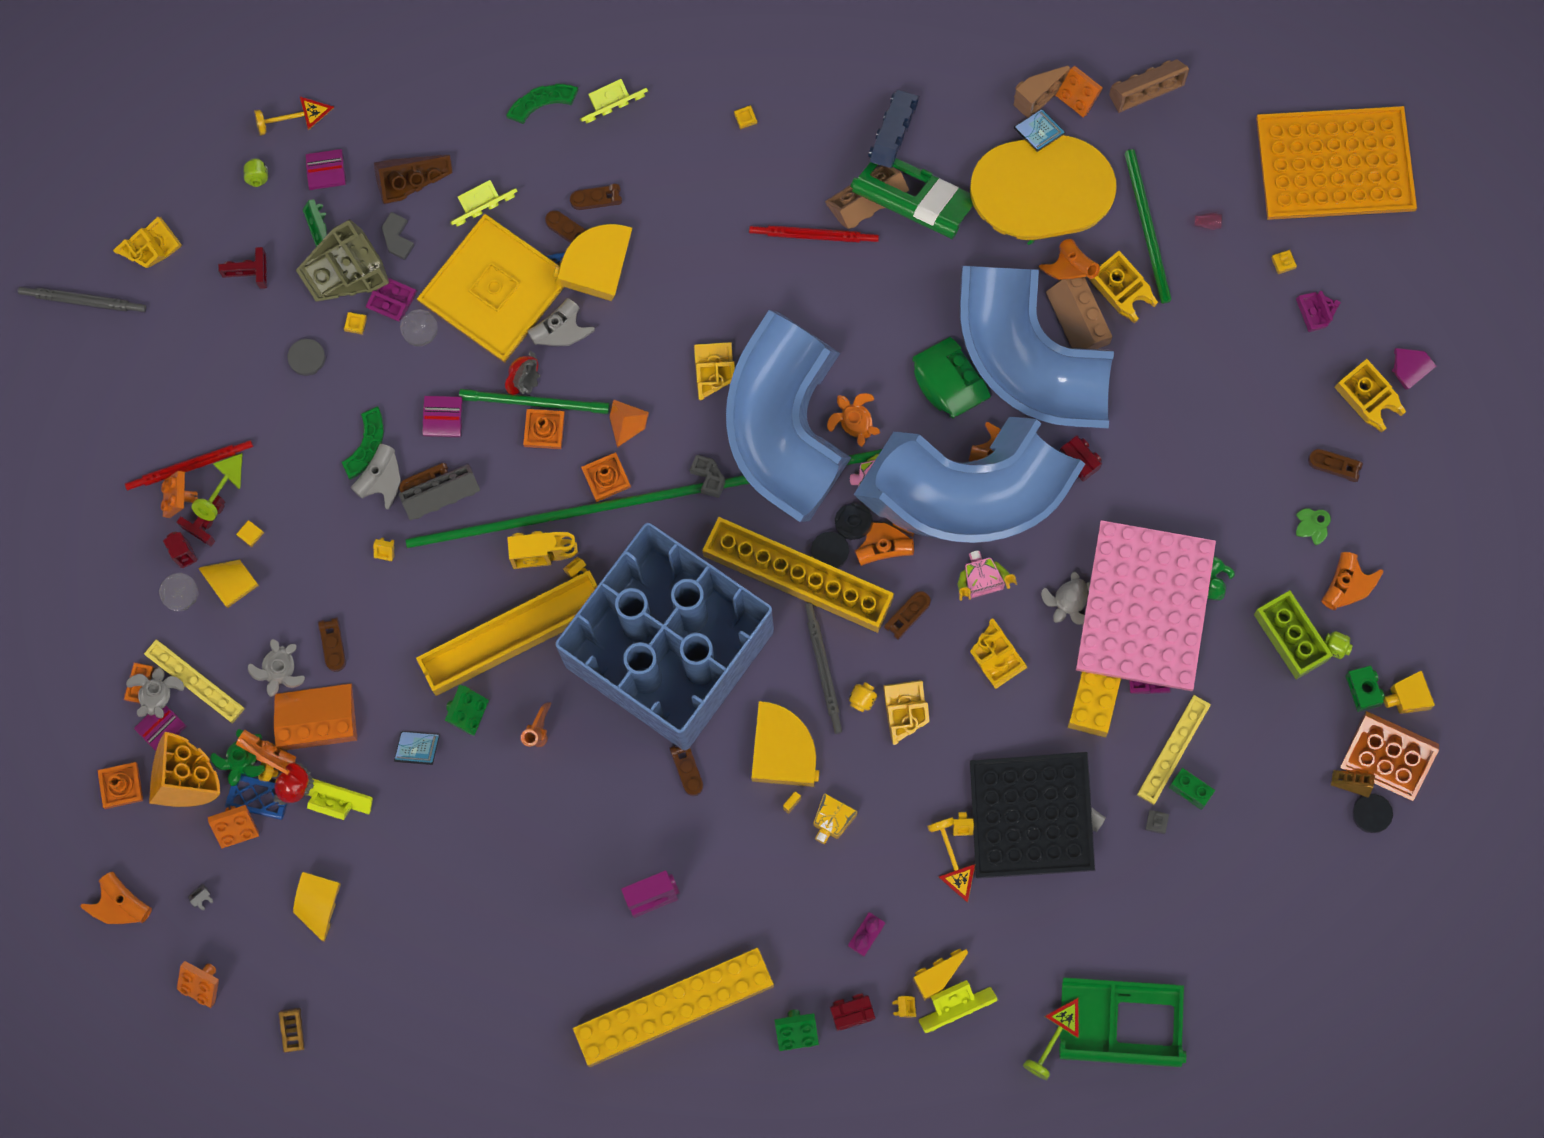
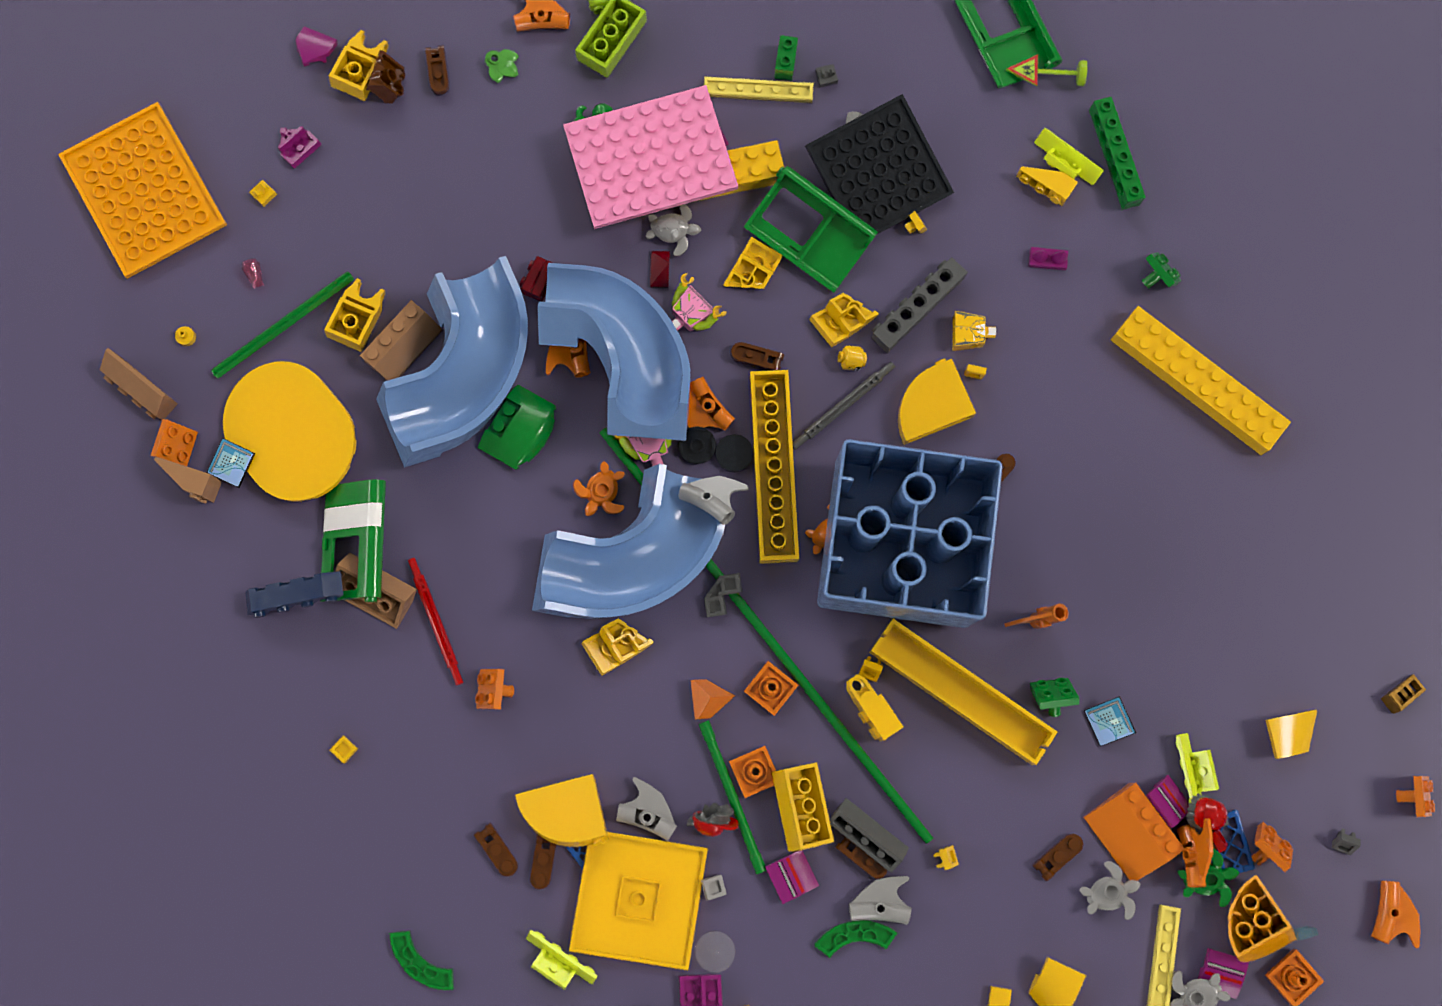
camera: 125 degrees left, 5 degrees up
(150, 814) = (1305, 932): none -> clear light blue tile
(265, 782) = (1219, 840): none -> red tile
(322, 759) = (1168, 801): none -> magenta slope
(469, 349) = (713, 887): none -> light grey plate
(492, 448) = (802, 807): none -> yellow brick
(609, 97) = (386, 892): neon yellow bracket -> none
(650, 893) = (1128, 438): magenta arch -> none
(730, 250) = (492, 689): none -> orange plate
(793, 495) = (712, 496): none -> light grey pin
(852, 1012) = (1119, 236): dark red brick -> none
(873, 736) = (949, 269): none -> dark grey brick
(906, 1007) = (1090, 196): yellow tile -> none
(937, 1057) = (1117, 153): none -> green brick
(960, 879) = (962, 207): yellow piece -> none
(977, 731) = (832, 246): none -> green piece
(1038, 571) = (660, 269): none -> dark red slope
(1071, 263) = (356, 368): orange pin -> none
(1177, 142) = (185, 336): none -> yellow tile
(1344, 413) = (387, 78): none -> reddish brown slope

